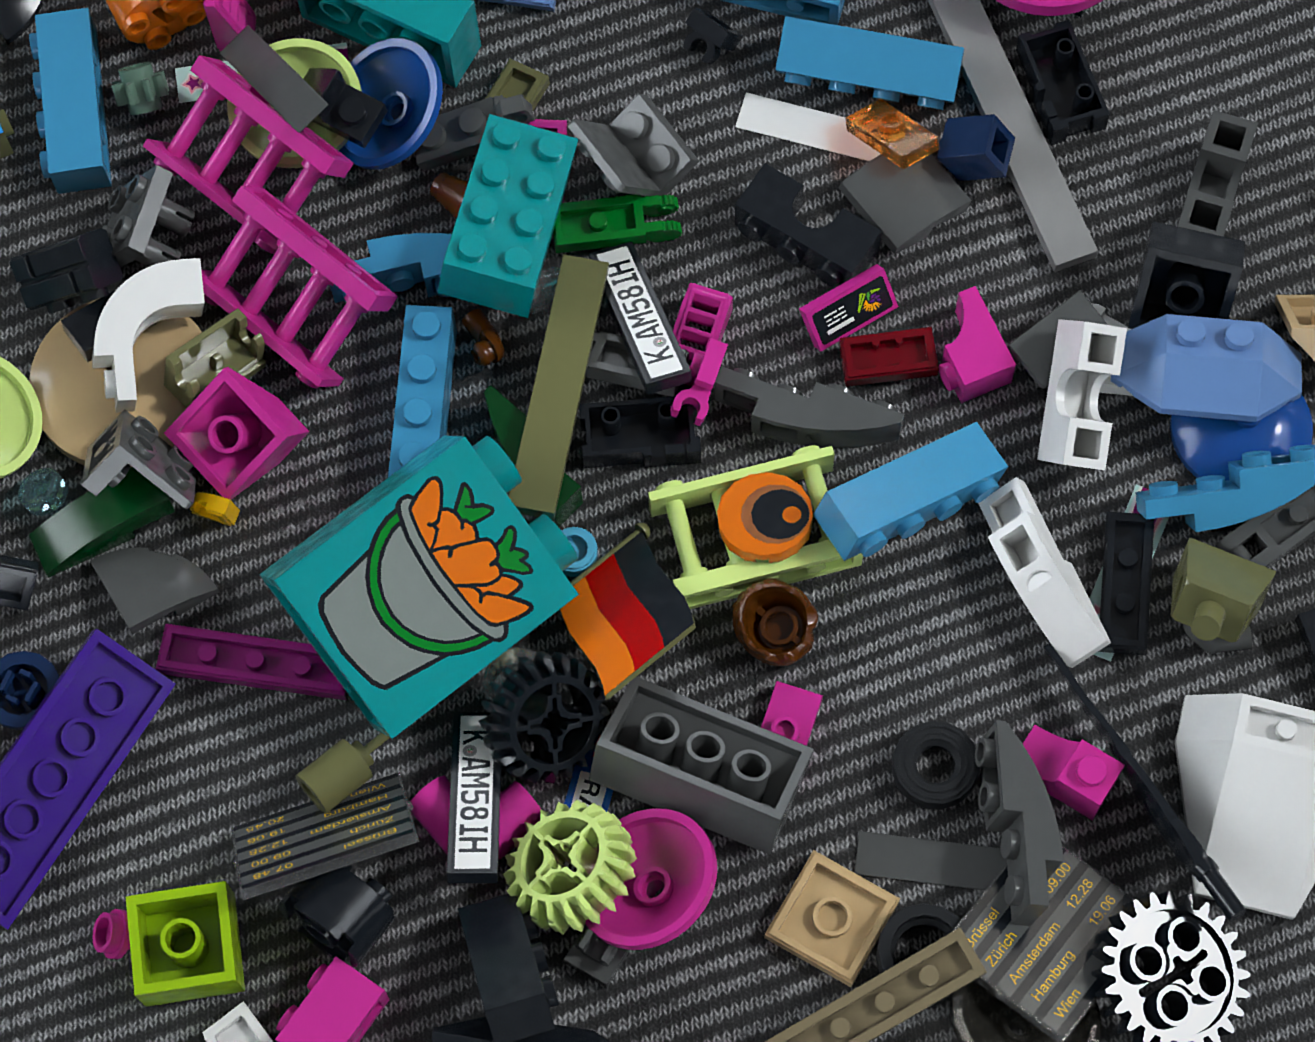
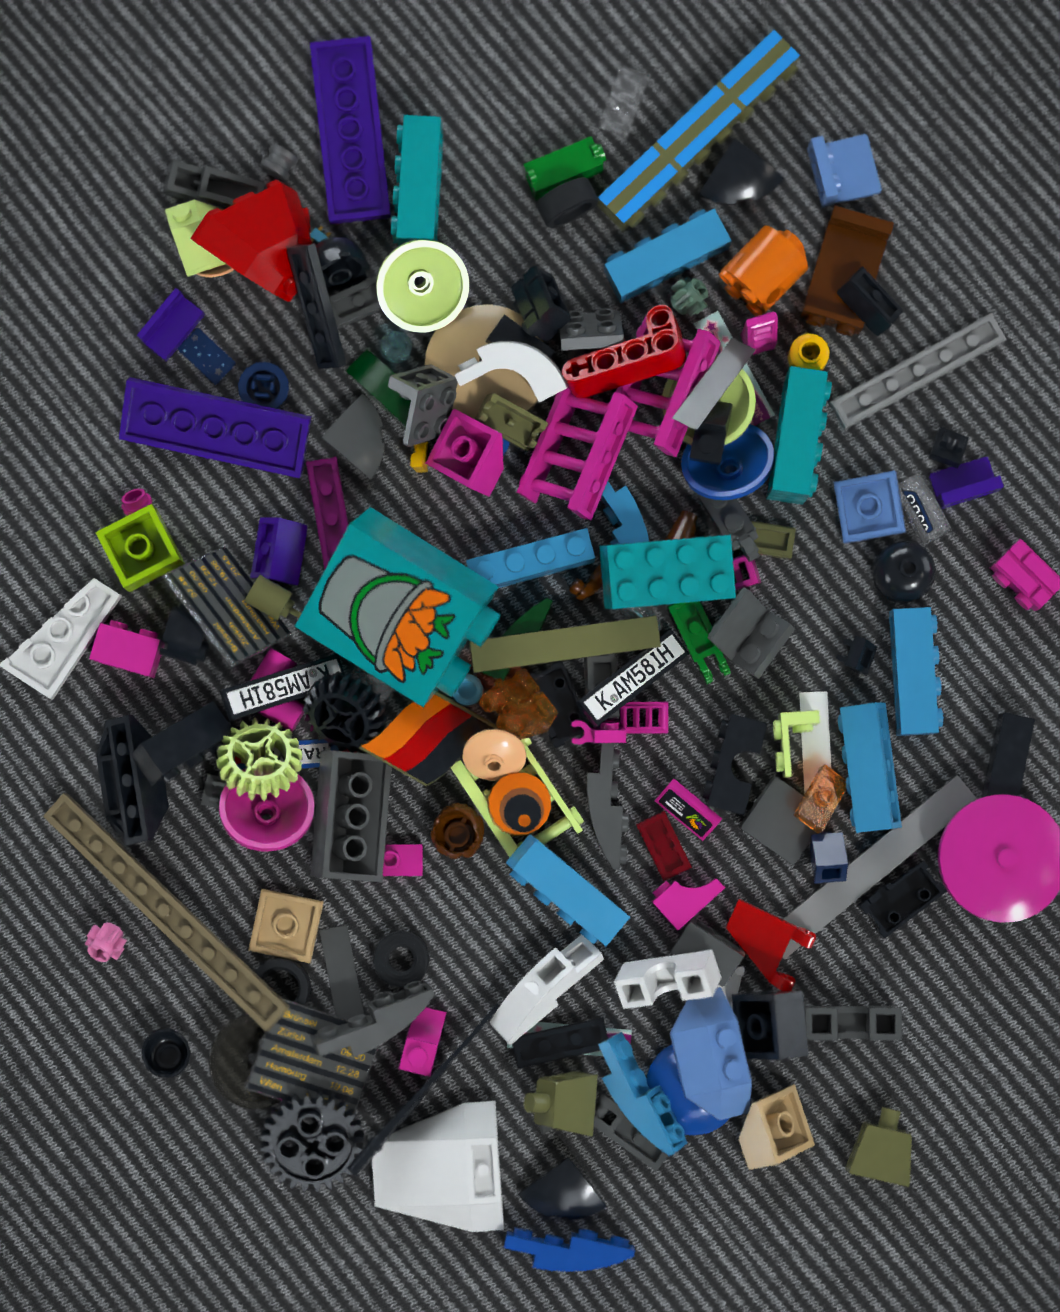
camera: 70 degrees right, 15 degrees up
(196, 171) = (630, 360): none -> red beam
(267, 749) = (279, 550): none -> dark purple panel
(624, 473) = (519, 706): none -> clear orange hips
(670, 528) = (495, 746): none -> light nougat dish
(796, 148) = (800, 723): none -> yellowish green bracket
(1064, 263) = (766, 939): none -> red flag

